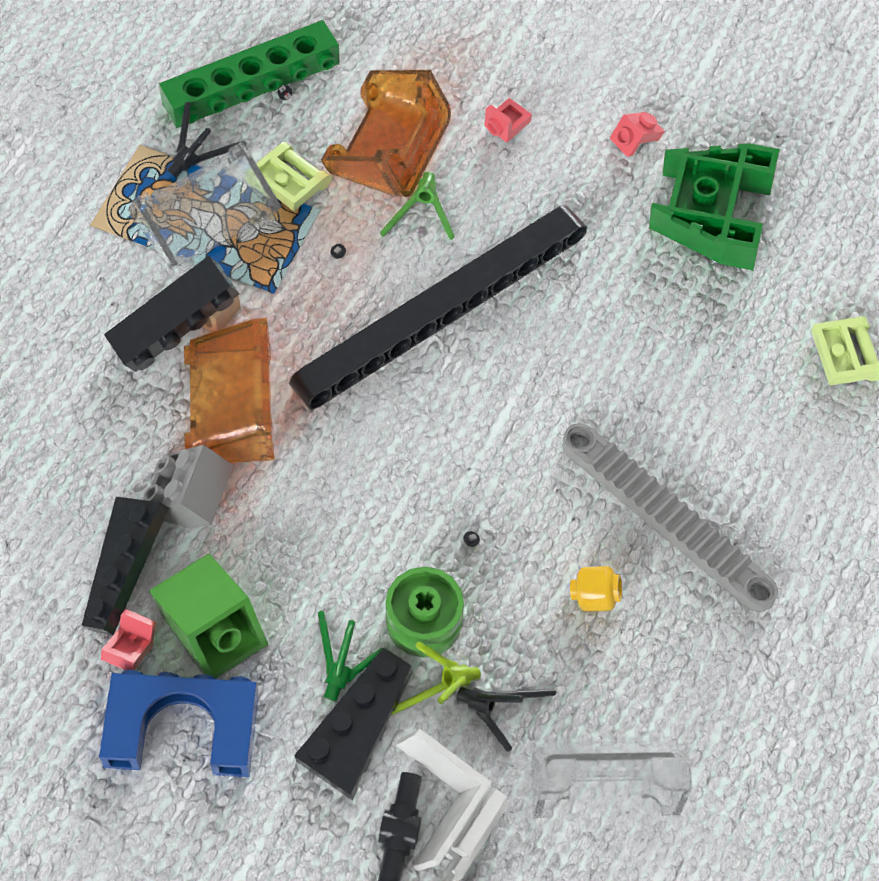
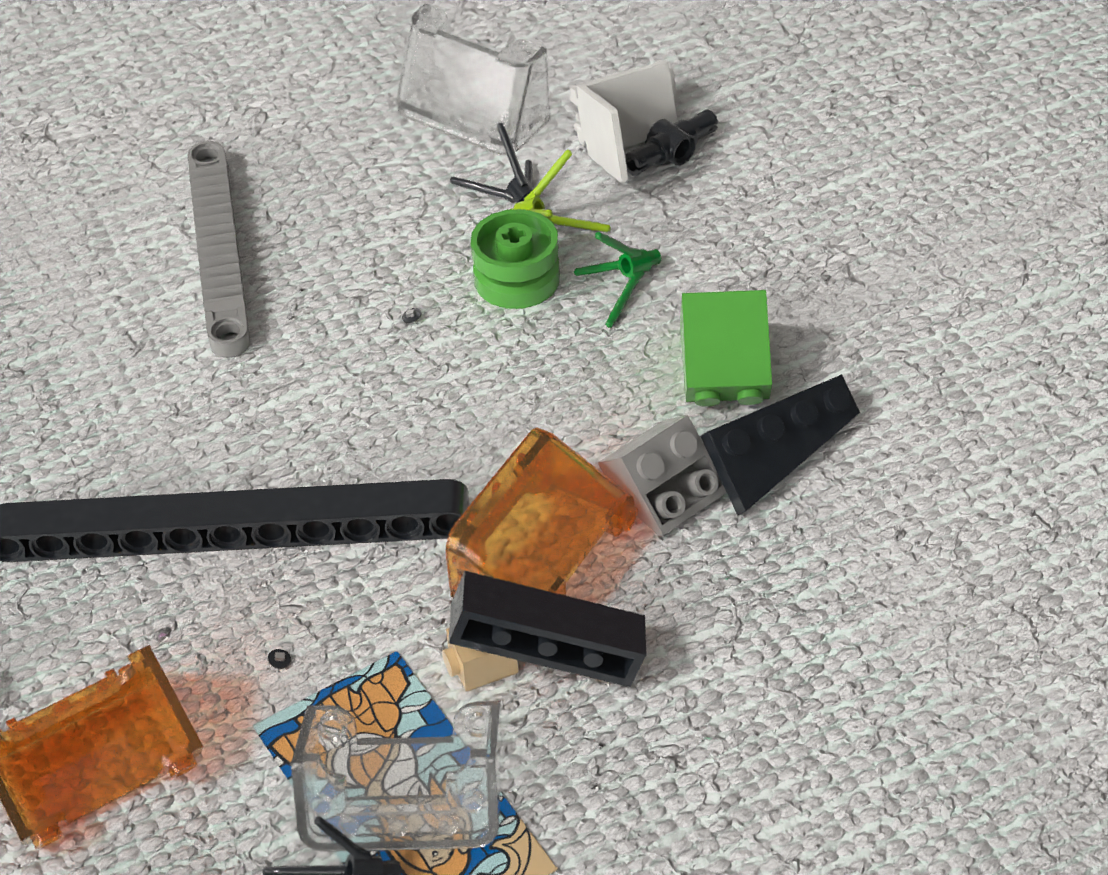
camera: 140 degrees left, 15 degrees down
(130, 642) = (821, 364): coral bracket -> none
(139, 697) = (838, 321): blue arch -> none
(287, 183) = (267, 768): yellowish green plate -> none
(348, 735) = (659, 221): black wing -> none
(425, 194) = (114, 658): bright green plant -> none
(596, 588) = (343, 212): yellow head -> none

